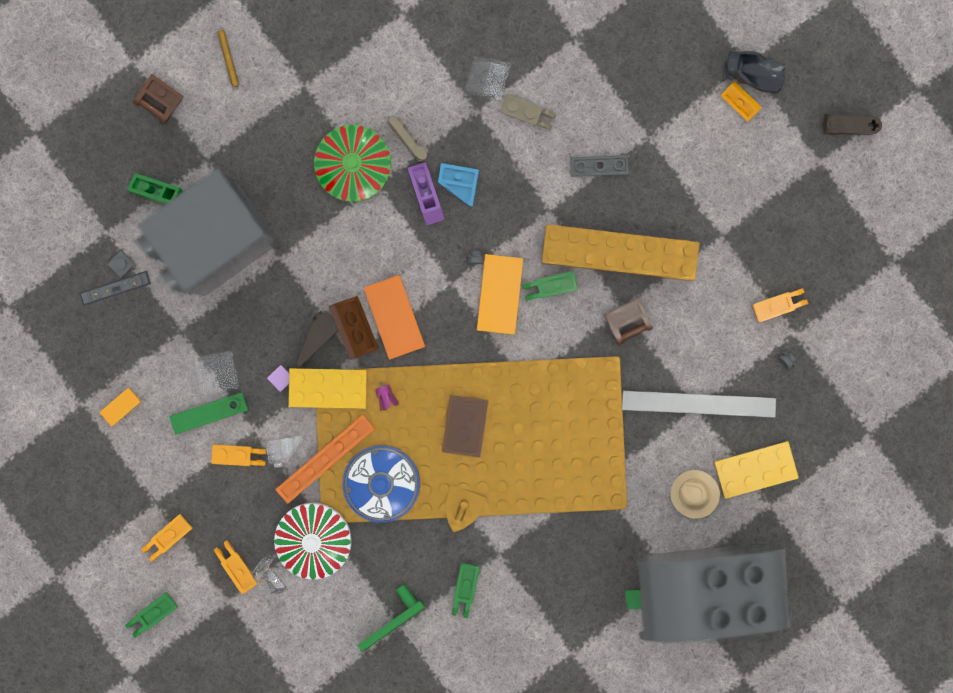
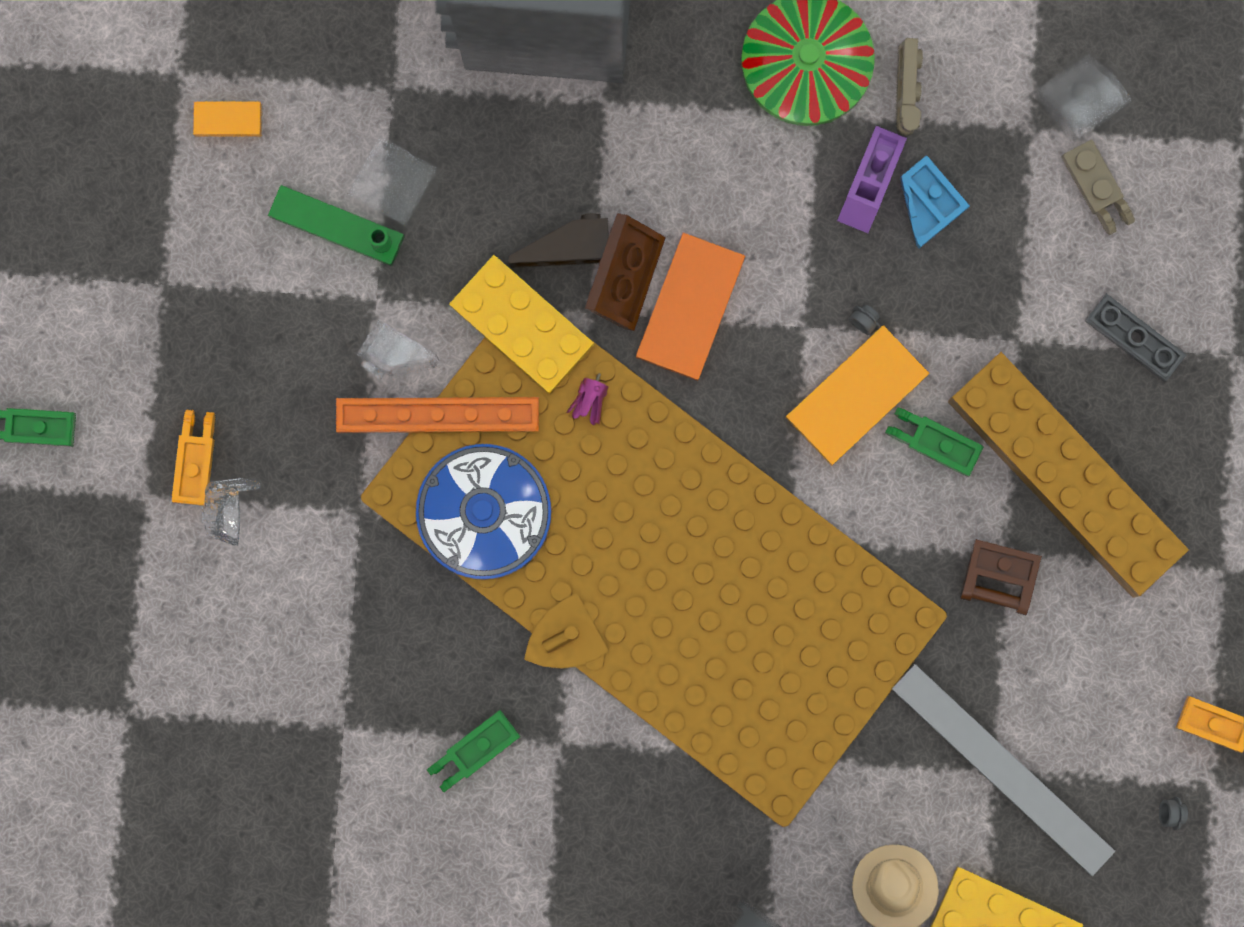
camera: 50 degrees right, 5 degrees down
(168, 536) = (141, 341): light orange hinge -> none
(235, 455) = (323, 310): light orange hinge -> none
(279, 378) = (469, 258): lavender tile -> none
(312, 540) = (327, 510): dish -> none
(413, 608) = (381, 718): green piece -> none
(465, 426) = (662, 529): reddish brown plate -> none

